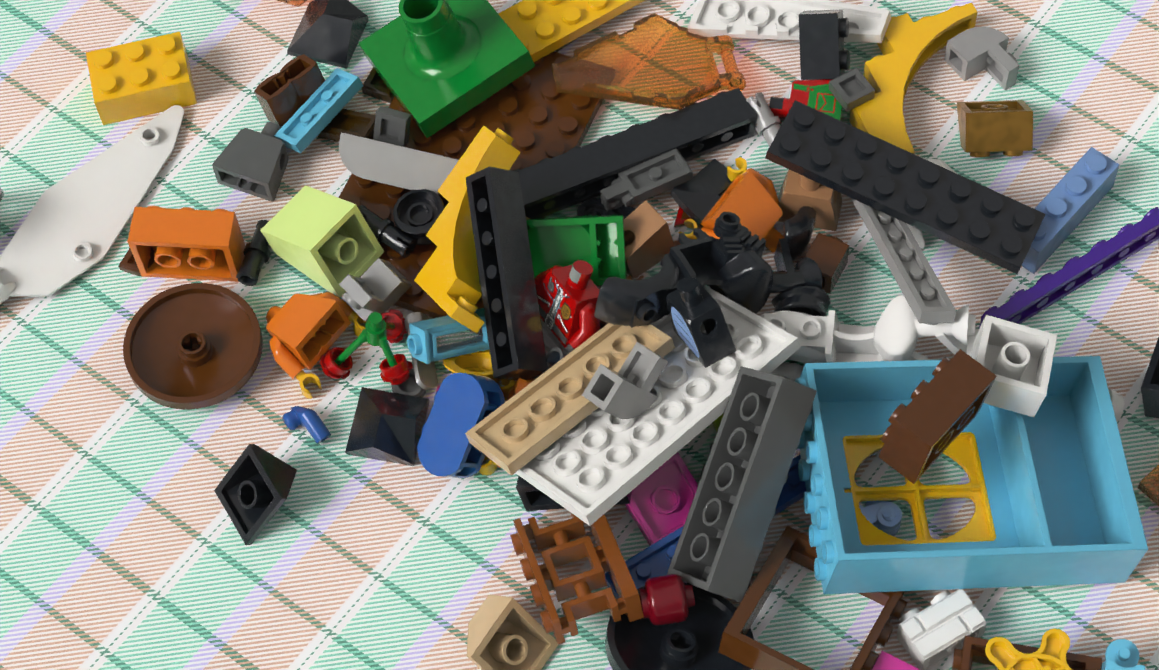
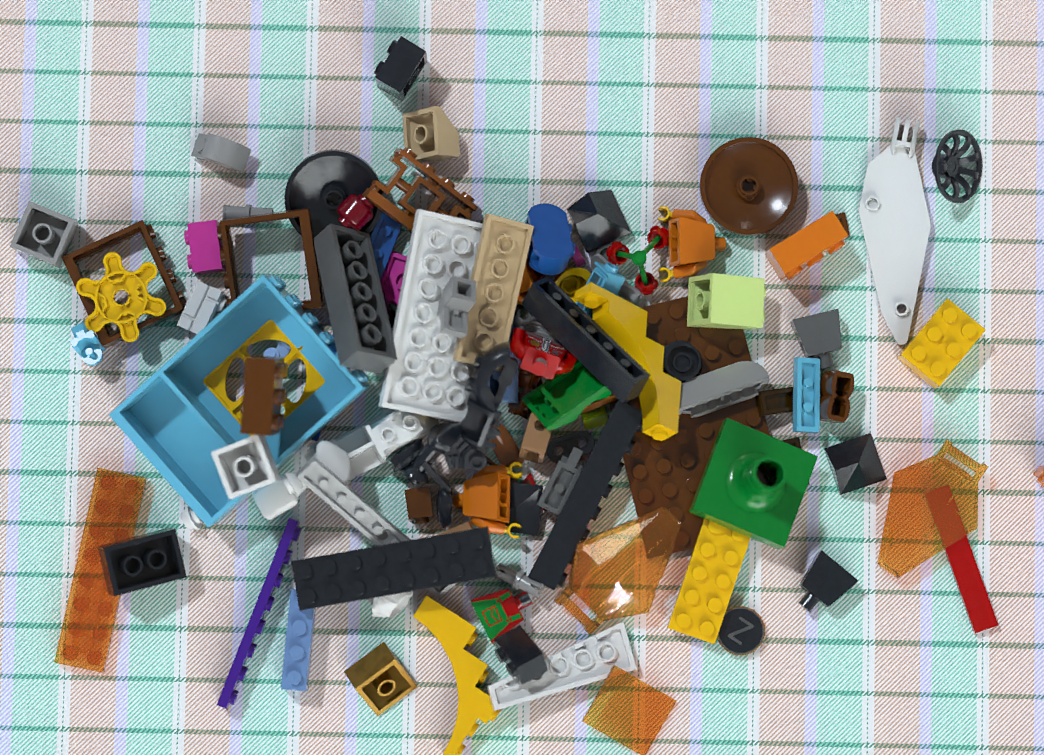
camera: 135 degrees right, 25 degrees up
(255, 490) = (636, 126): black slope -> none
(256, 254) = (764, 271): black pin -> none
(309, 419) = (646, 192): blue arm -> none
(375, 289) = (667, 291): light grey brick -> none
(387, 233) = (696, 335): black pin -> none
(392, 126) = (747, 410): dark grey tile -> none
(691, 307) = (445, 378): black torso -> none
(851, 89) = (480, 634): dark grey tile -> none
(980, 50) = (425, 733): light grey brick -> none

